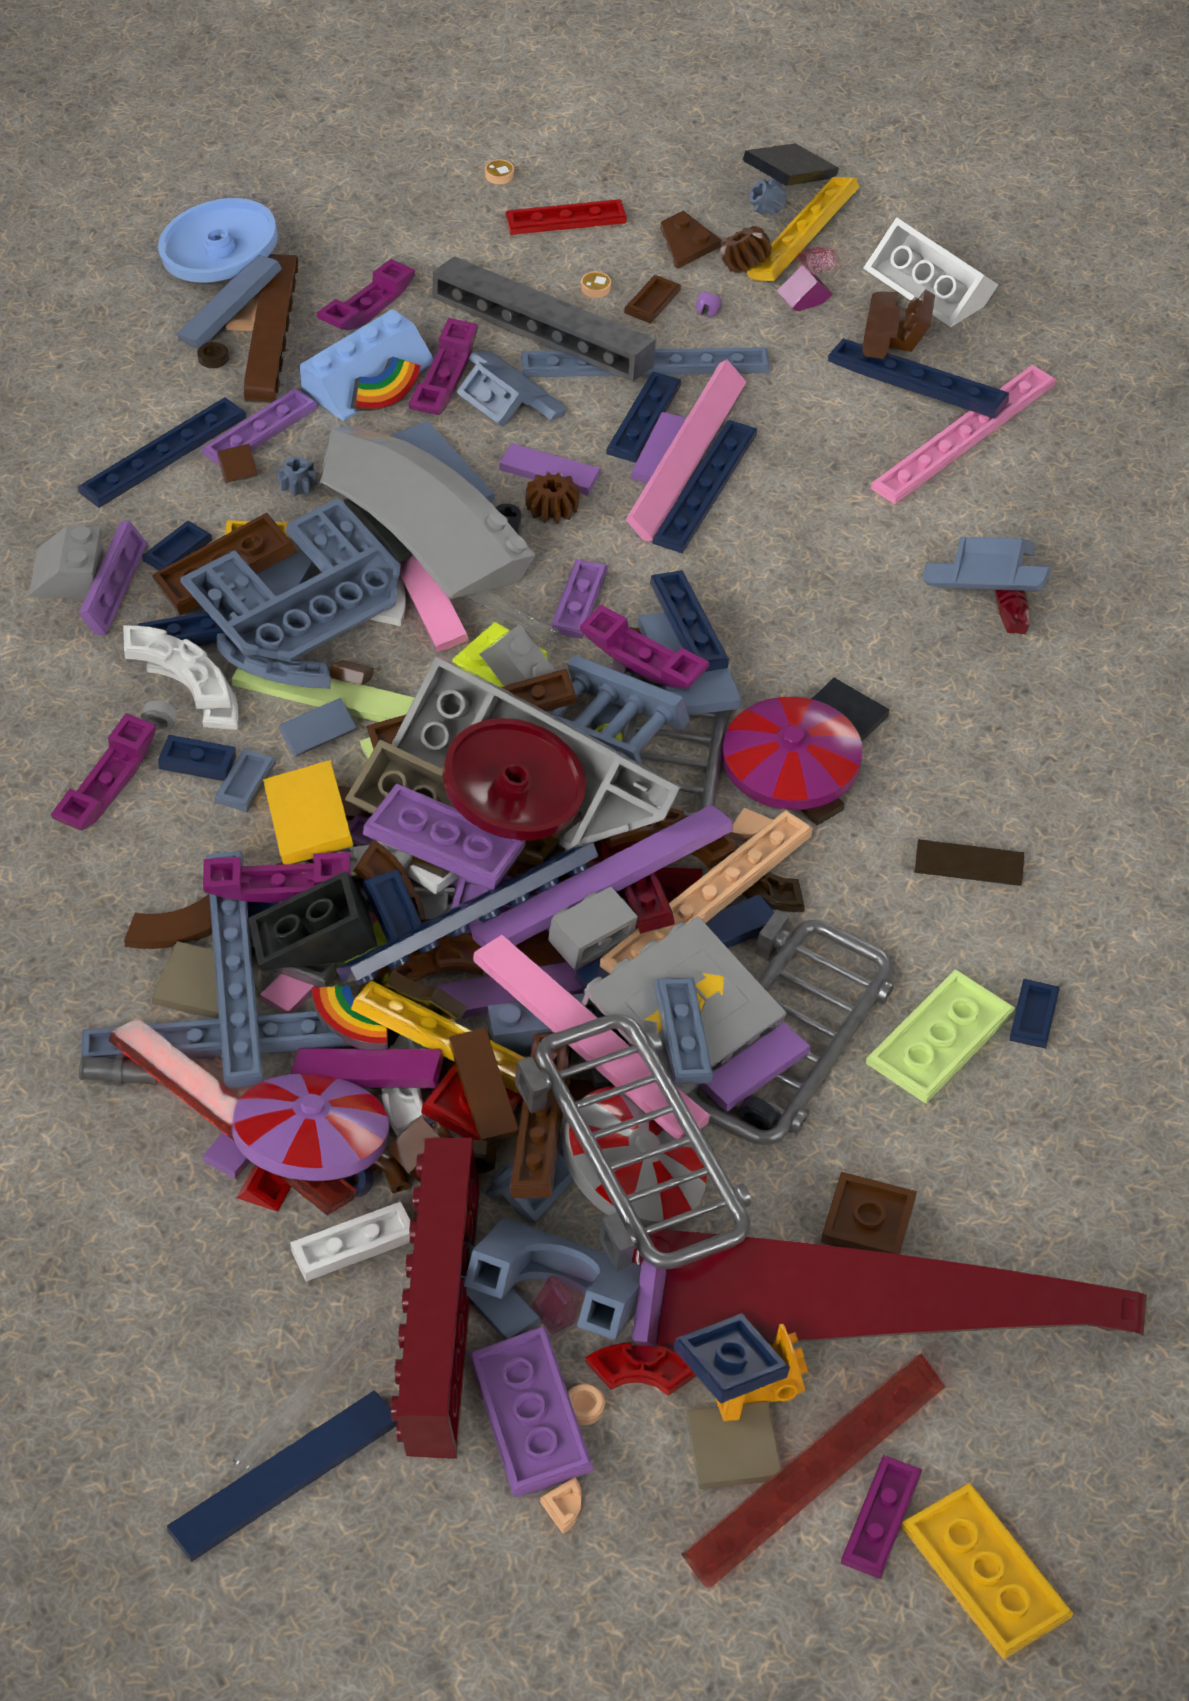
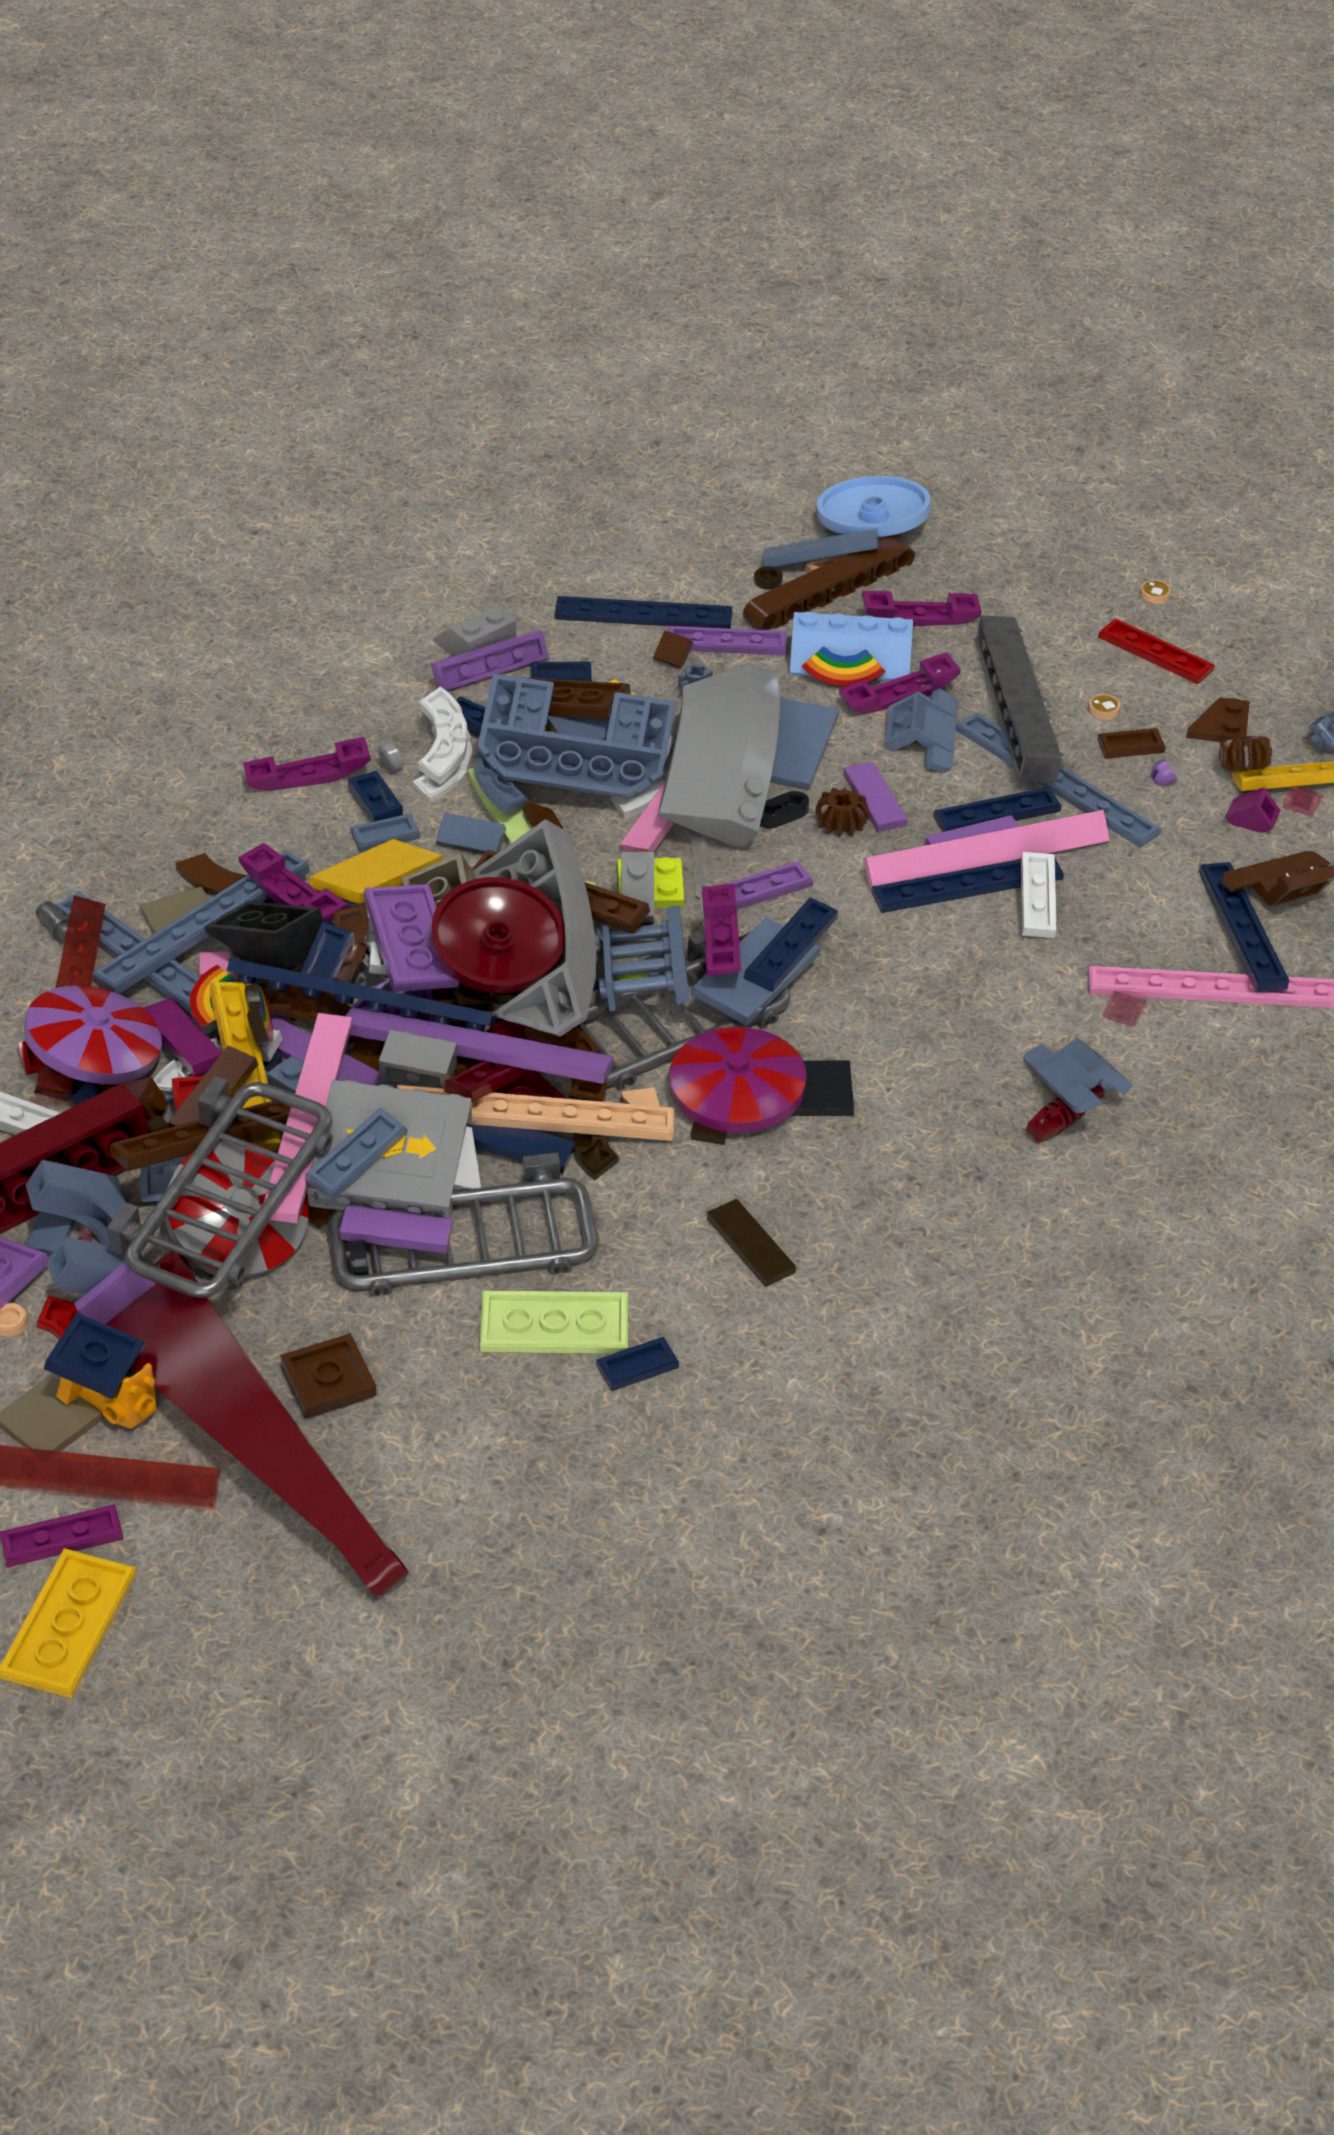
camera: 50 degrees right, 5 degrees down
(772, 456) = (1038, 894): none -> white plate
(933, 496) = (1124, 1009): none -> clear pink tile

